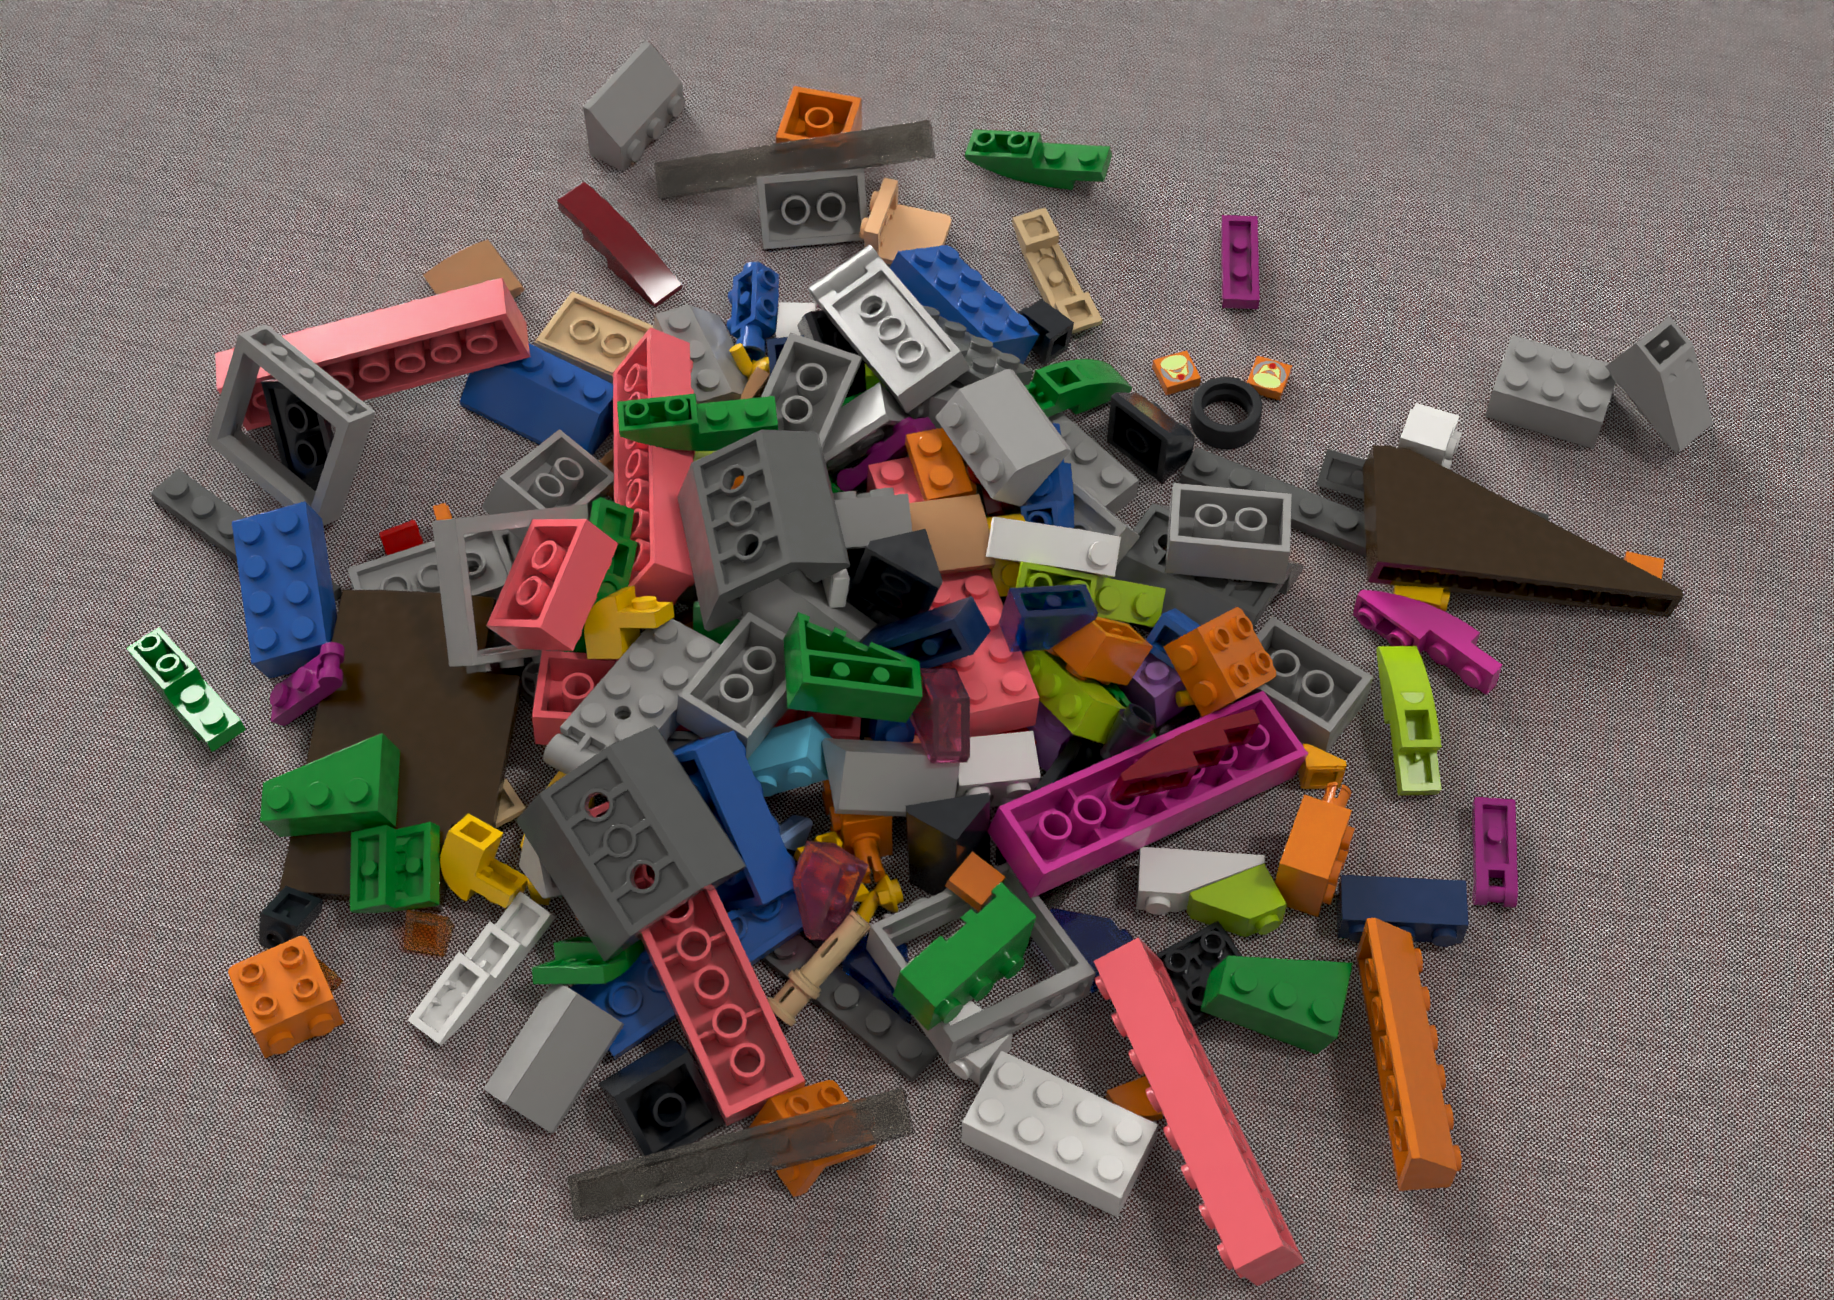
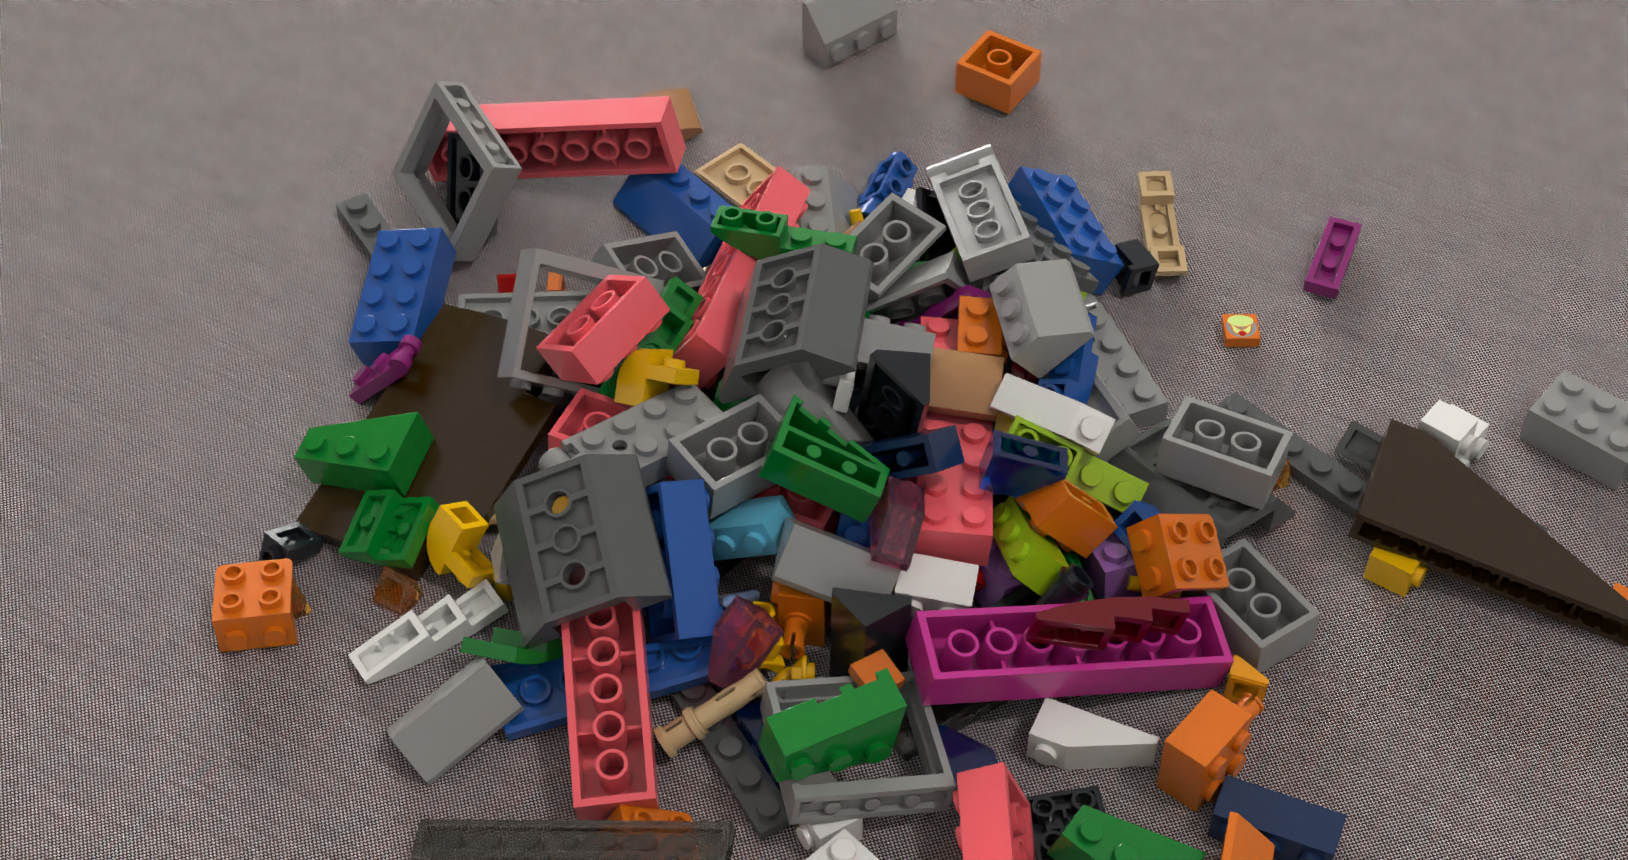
camera: 20 degrees right, 10 degrees down
(185, 690) = (290, 351): green slope -> none
(620, 244) = (794, 114): dark red slope -> none
(662, 1100) = (530, 780): black slope -> none
(811, 207) = (964, 121): light grey slope -> none
(826, 153) = (967, 83): clear smoke plate -> none
(900, 227) = (1031, 151): light nougat bracket -> none
(1029, 160) = (1174, 136): green slope -> none
(1075, 385) = (1139, 310): green slope -> none
(1148, 435) = (1191, 366): black slope -> none
(1227, 390) = (1266, 390): black tyre -> none
(1240, 903) = (1124, 774): lime slope -> none
(1269, 377) = (1324, 355): tile -> none
(1412, 719) = (1346, 667): lime slope -> none
(1438, 633) = (1389, 592): dark pink slope -> none
(1494, 851) = (1388, 802): magenta plate -> none

